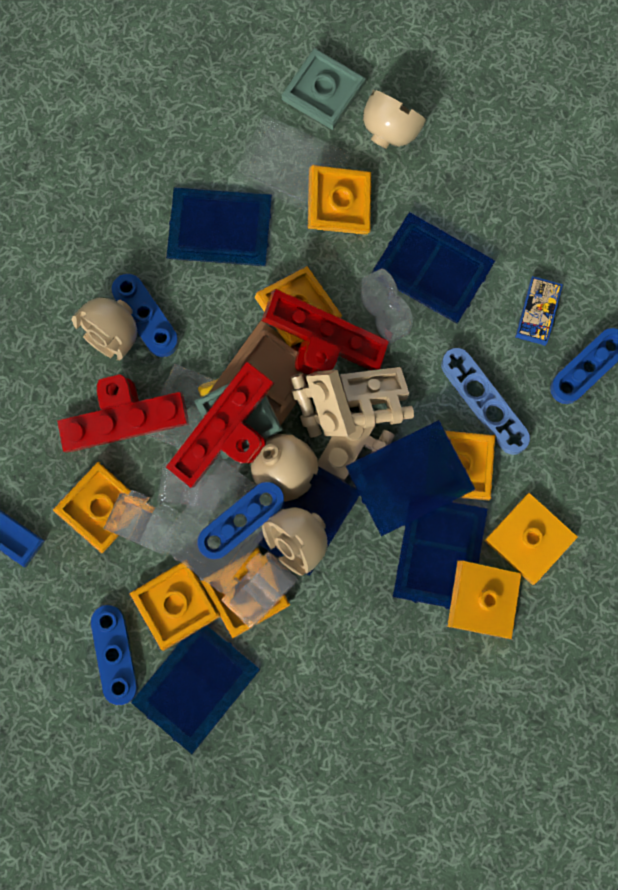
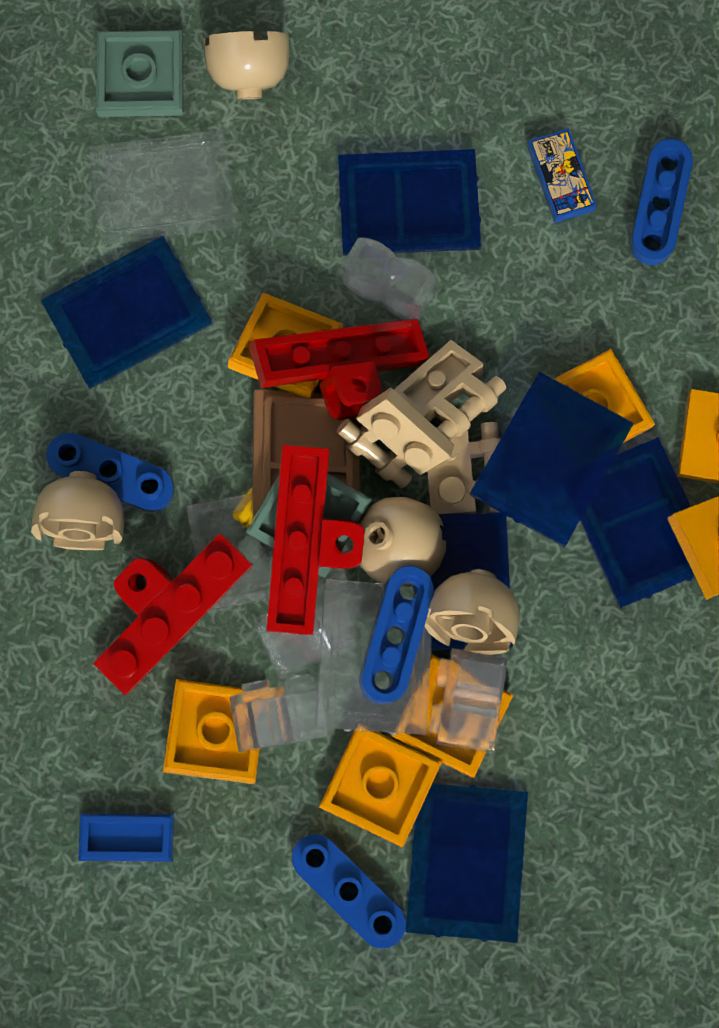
camera: 35 degrees left, 0 degrees up
(339, 200) = (248, 191): light orange plate -> none
(488, 398) = (573, 311): medium blue beam -> none

